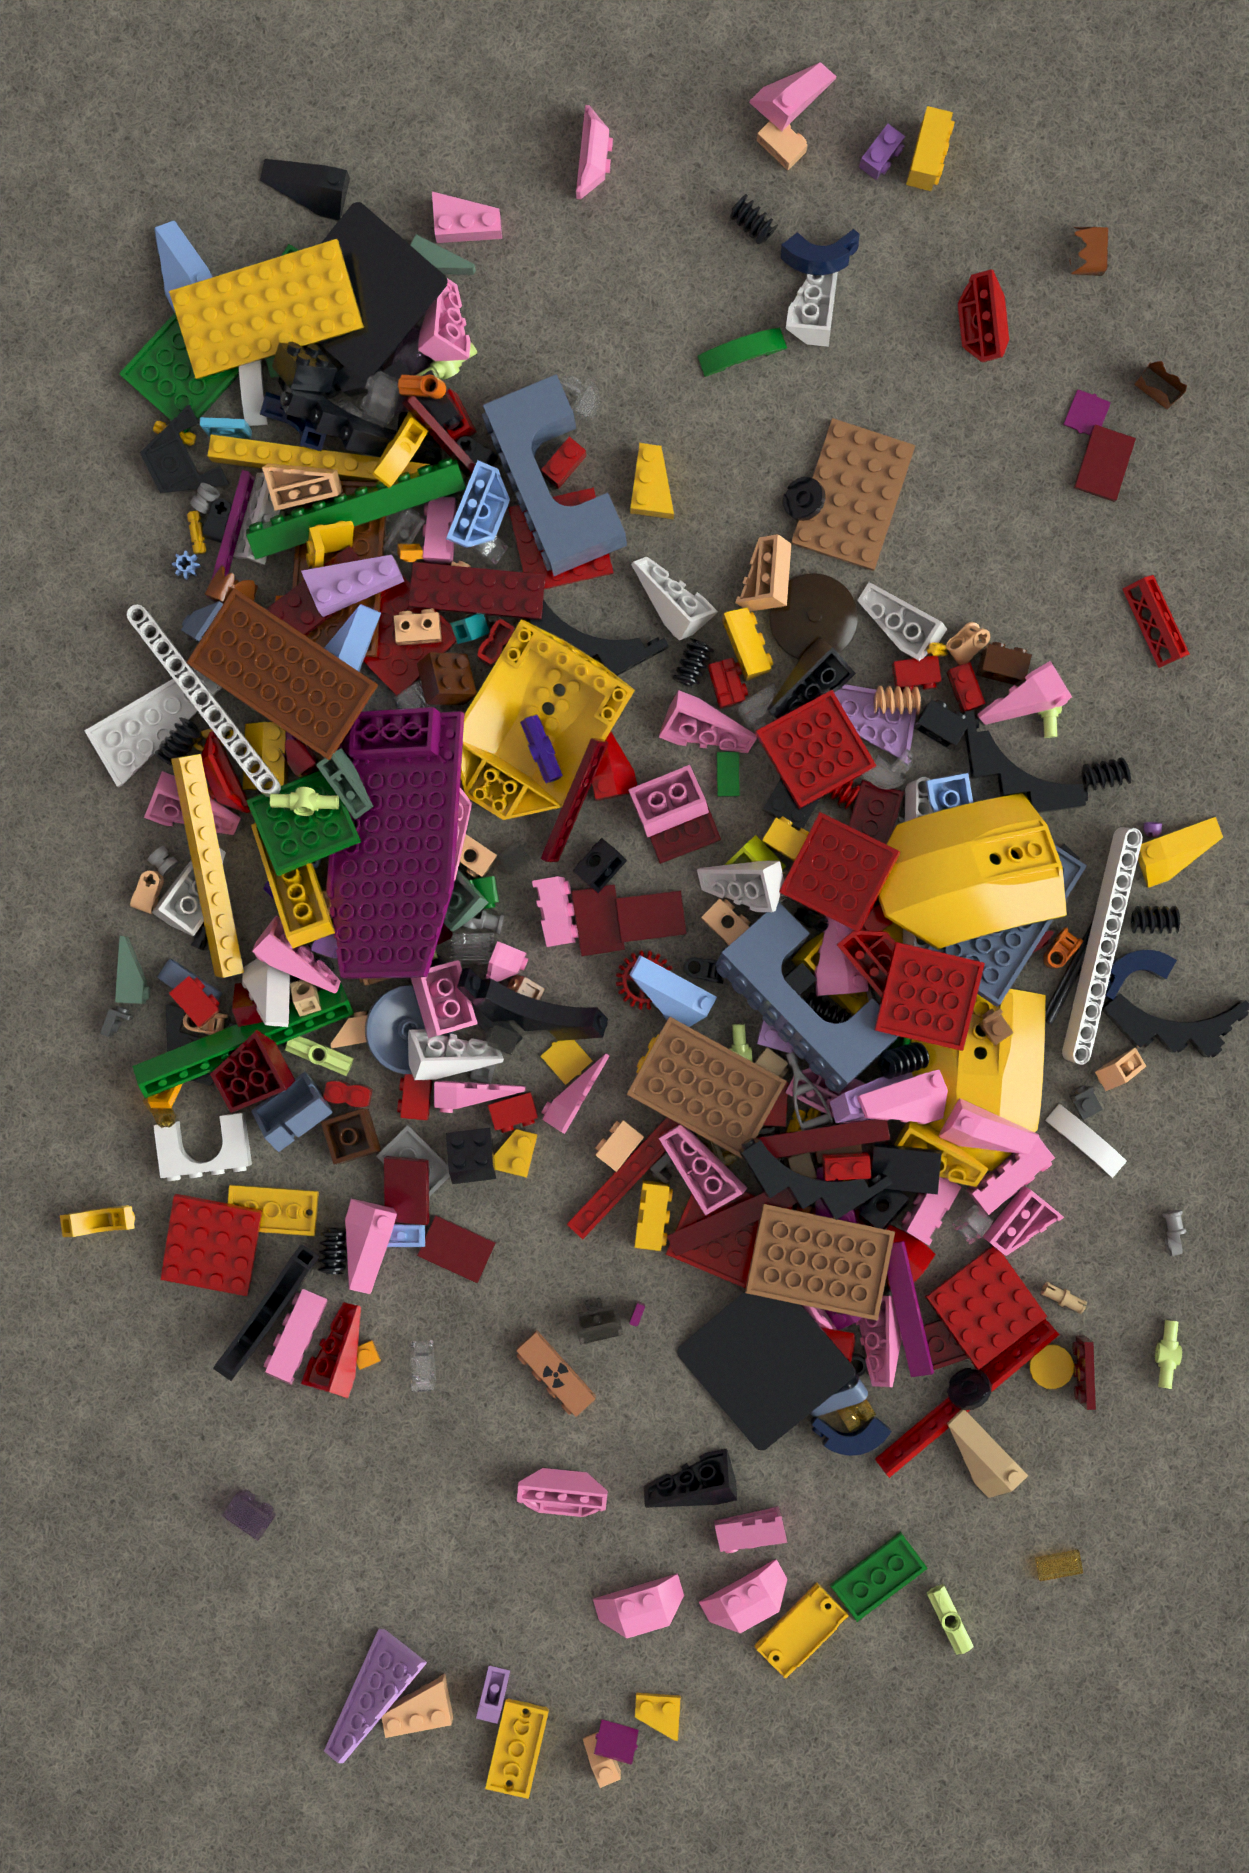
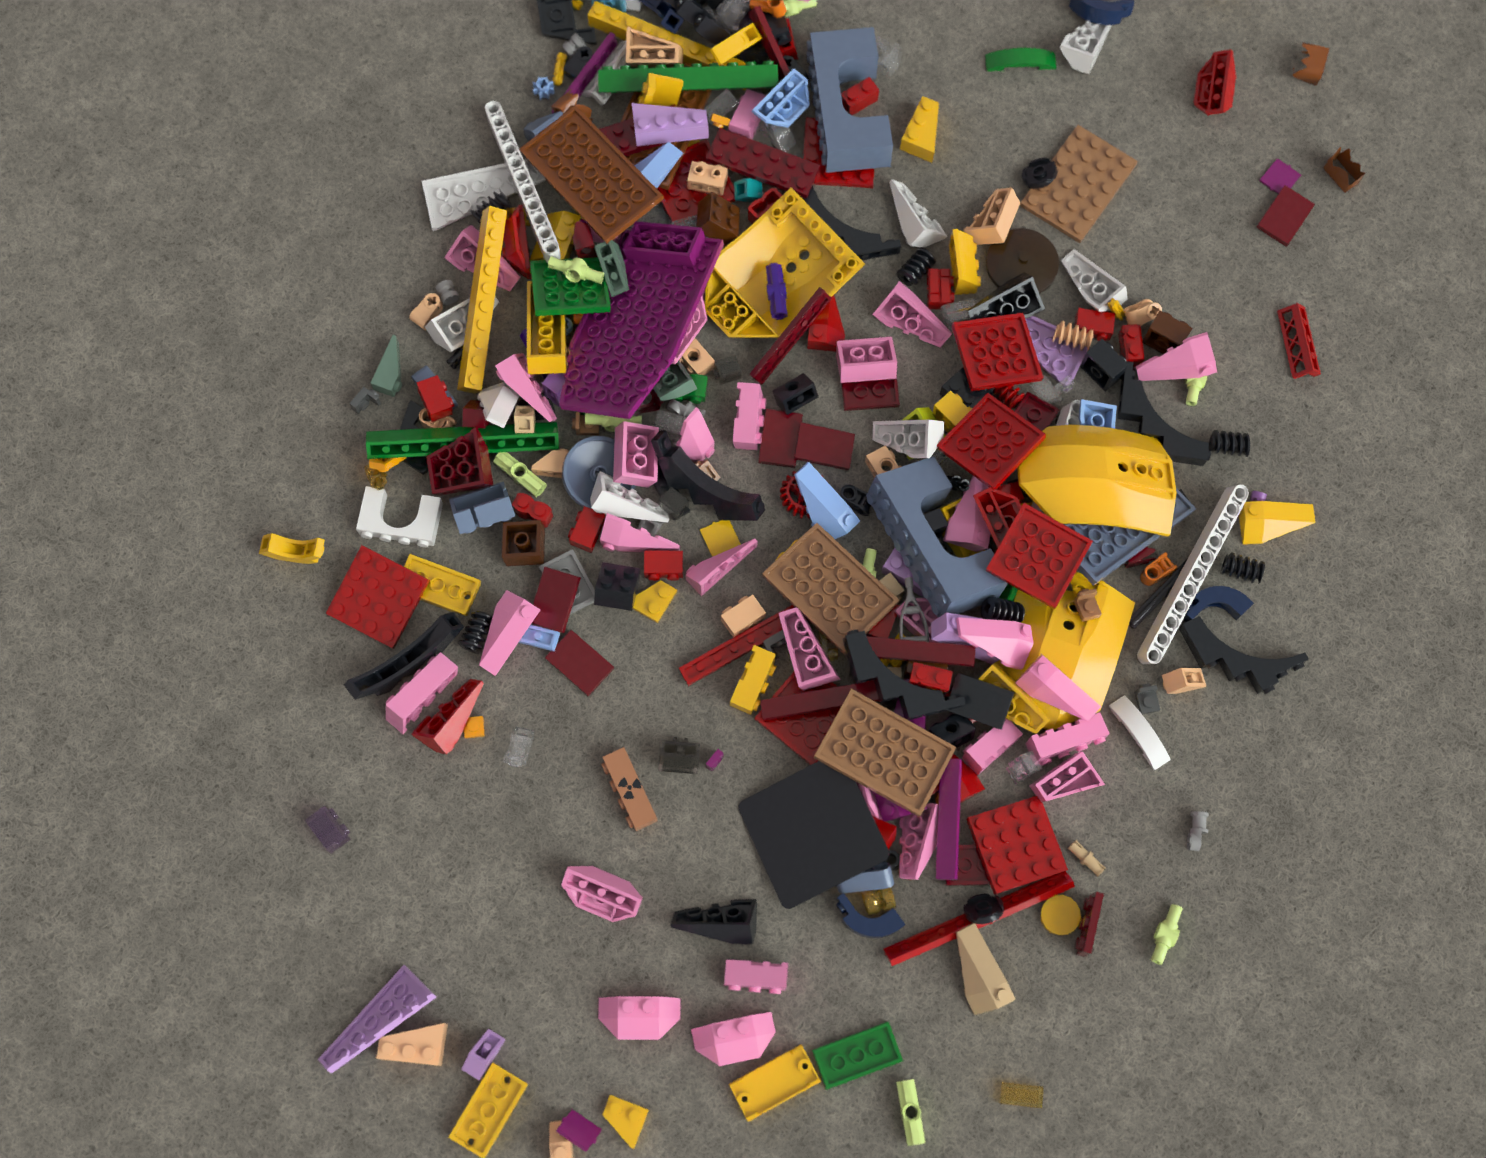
camera: 15 degrees right, 15 degrees down
(728, 774) = (919, 358): green tile -> none

